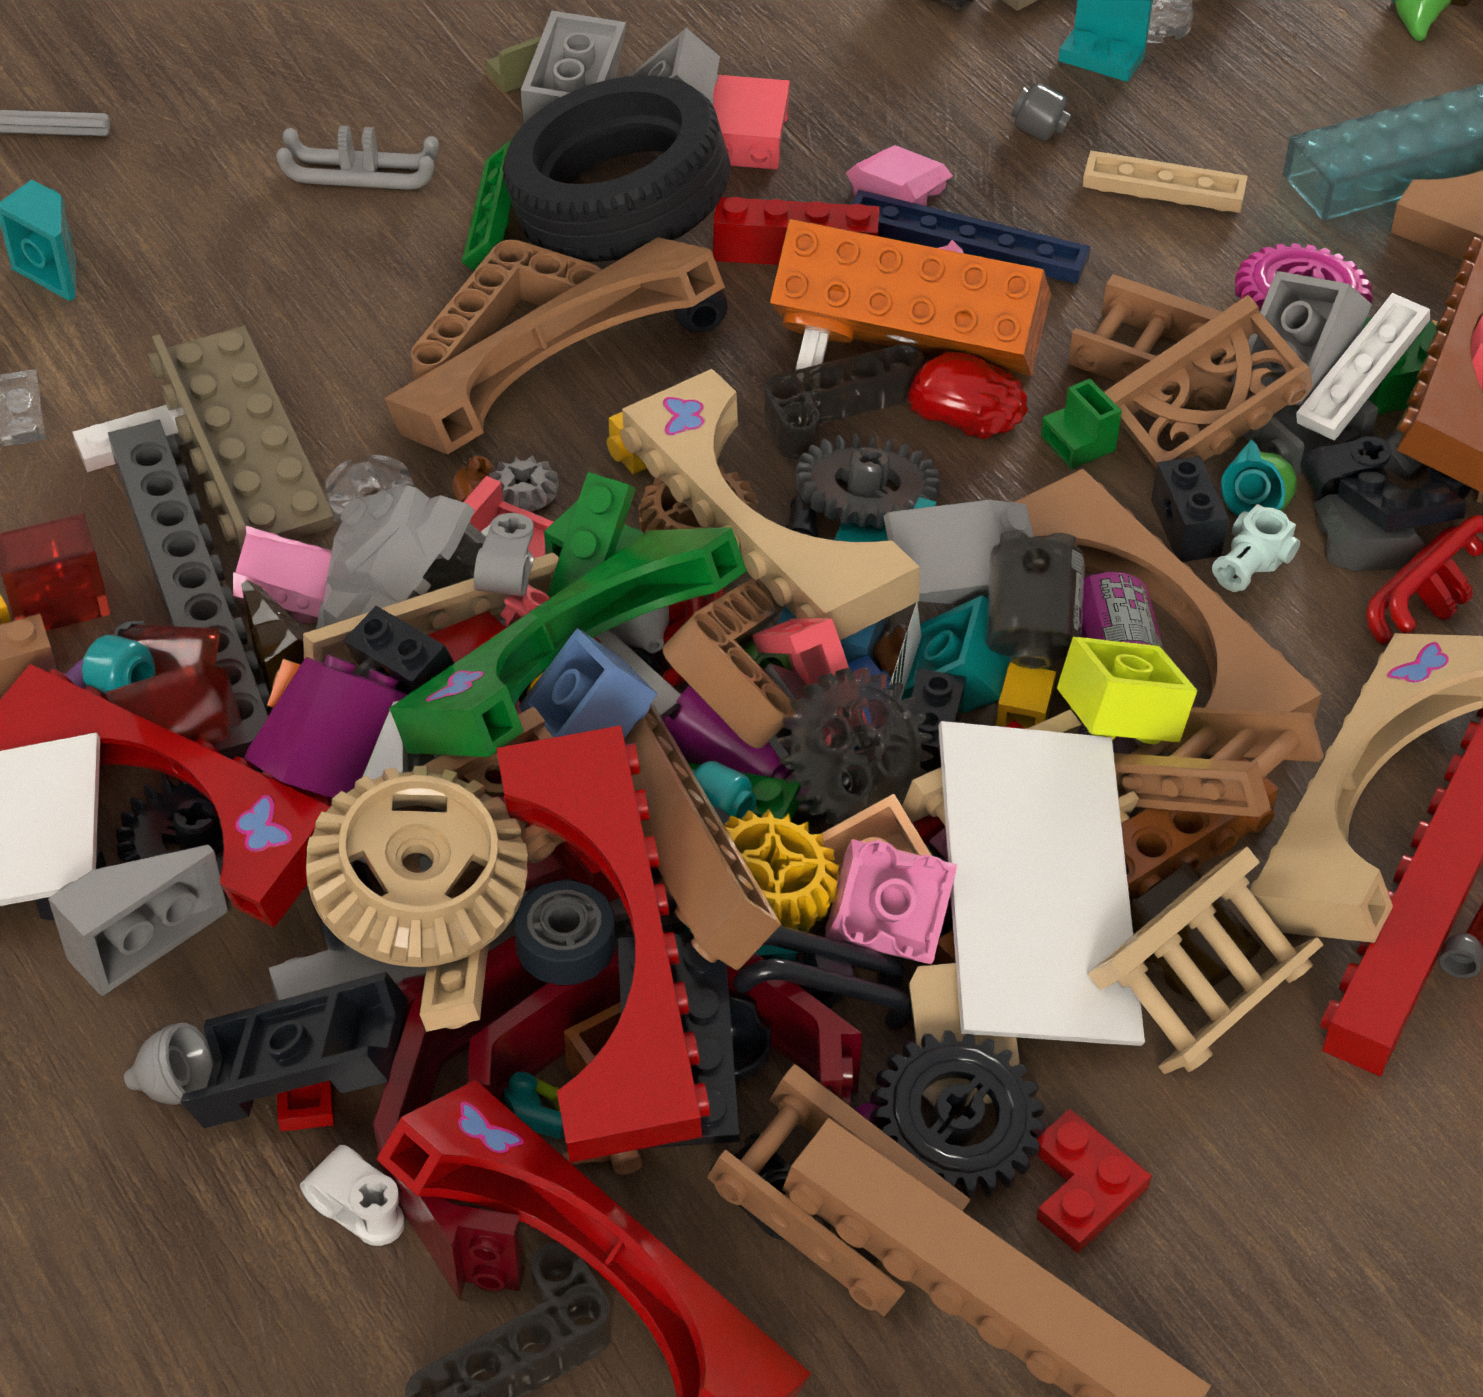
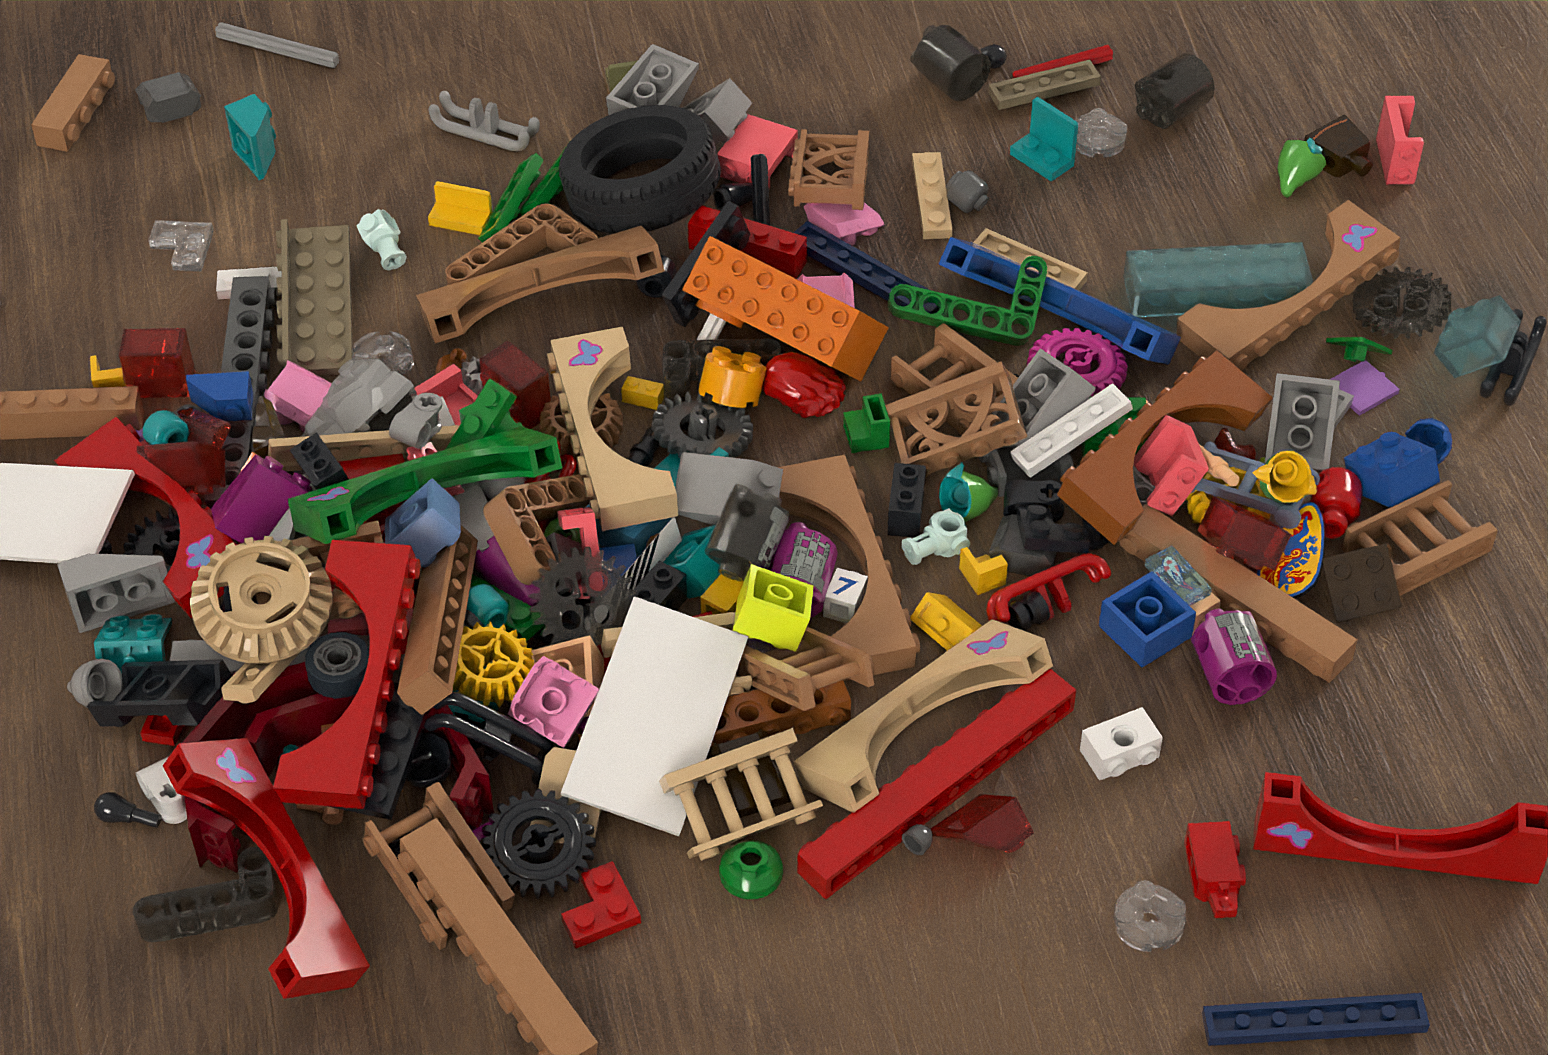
camera: 20 degrees right, 0 degrees up
(178, 593) = (223, 394): none -> blue slope
(199, 982) = (132, 639): none -> teal bracket
(288, 1248) = (114, 809): none -> black piece
(296, 336) = (381, 235): none -> light aqua connector
(383, 274) = (460, 208): none -> yellow panel
(446, 247) = (513, 195): none -> green plate
(569, 457) = (521, 377): none -> clear red brick
(747, 178) = (736, 193): none -> black cone
(758, 315) = (728, 228): none -> black plate
(758, 456) = (642, 392): none -> yellow piece
(779, 159) = (760, 189): none -> black axle
(882, 405) = (732, 377): none -> light orange brick
(894, 131) = (844, 185): none -> medium nougat fence
(993, 128) = (932, 195): none -> tan plate
(1146, 250) = (976, 310): none -> green beam
(1148, 198) = (1098, 316): none -> blue arch
(1187, 647) = (844, 595): none -> white brick
(1258, 1080) = (754, 880): none -> green piece
(1329, 656) = (943, 620): none -> yellow panel
(1331, 580) = (983, 572): none -> yellow panel
(1431, 608) = (1028, 611): none -> black wheel

